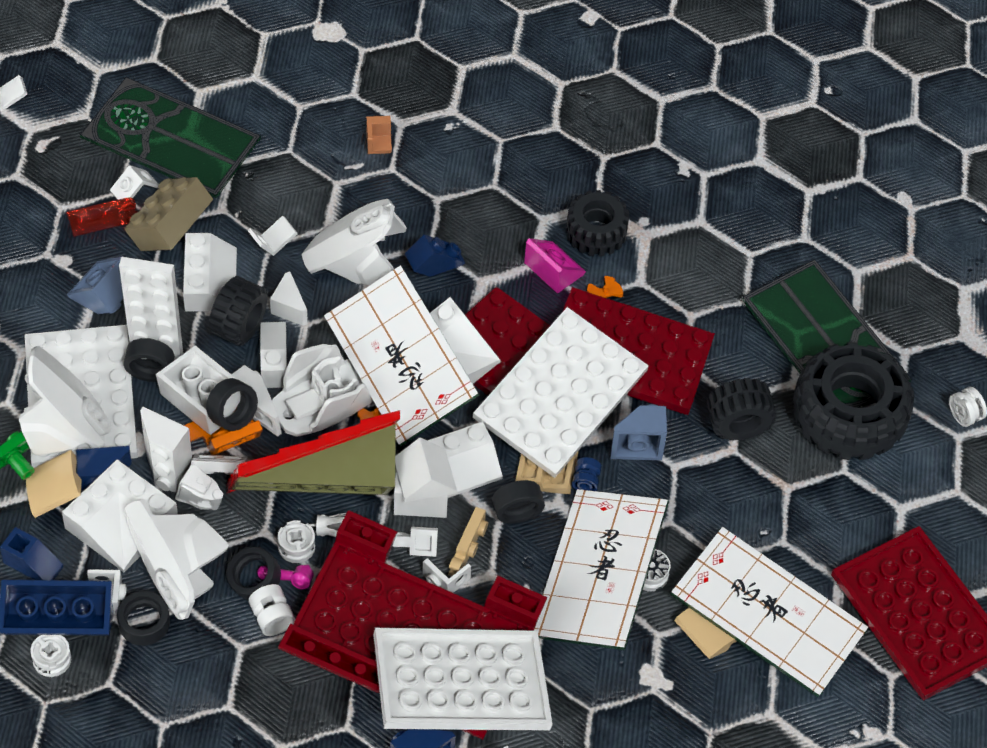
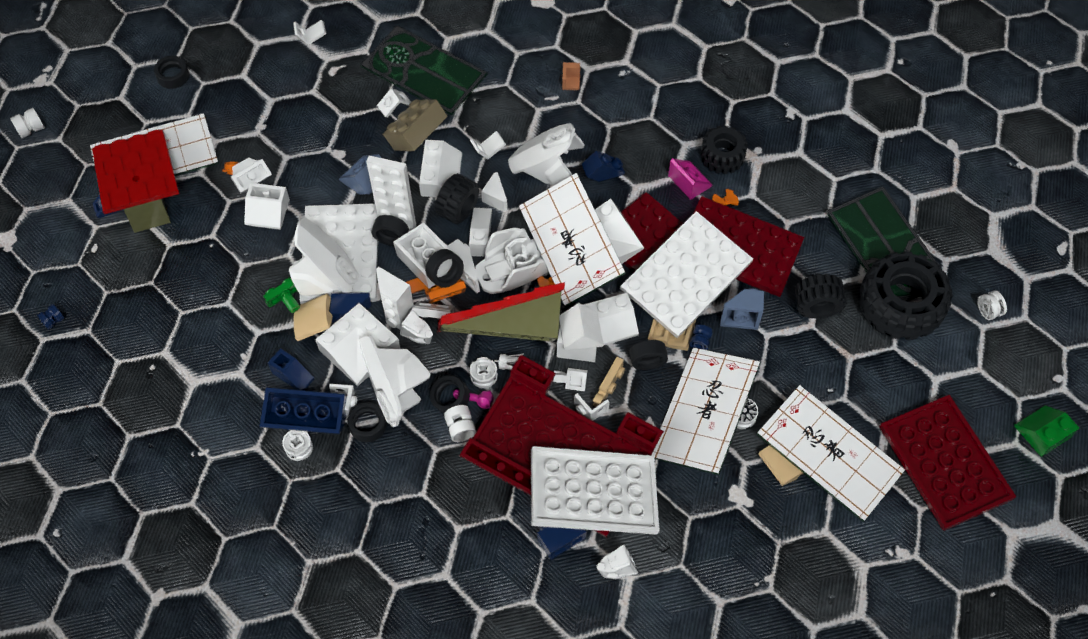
camera: 10 degrees right, 5 degrees up
(101, 216) = (368, 123): clear red plate -> none

